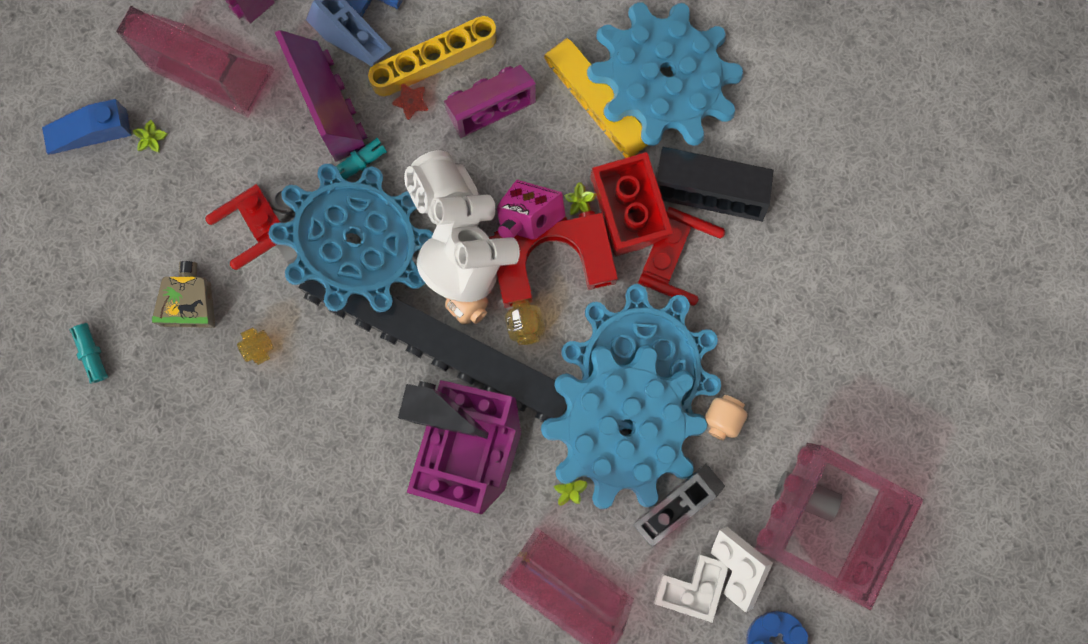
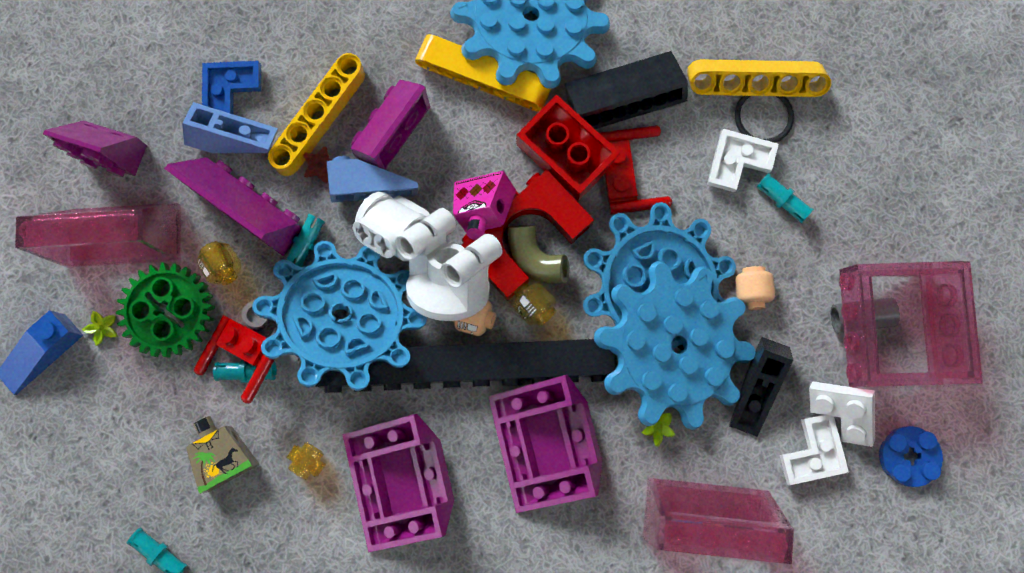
camera: 25 degrees left, 0 degrees up
(186, 161) = (147, 330): none -> green gear
(243, 239) = (239, 371): none -> teal pin
(277, 137) = (219, 263): none -> clear yellow head
(323, 408) = (399, 482): none -> magenta slope
(434, 131) = (357, 180): none -> medium blue slope
(437, 410) = (503, 424): black slope -> none
(545, 283) = (534, 262): none -> olive cylinder
(579, 199) = (519, 169): lime plant -> none
(780, 290) = (736, 152): none -> white plate
(798, 354) = (784, 198): none -> teal pin
(843, 248) = (770, 85): none -> yellow beam
(843, 254) = (778, 138): none -> black tyre

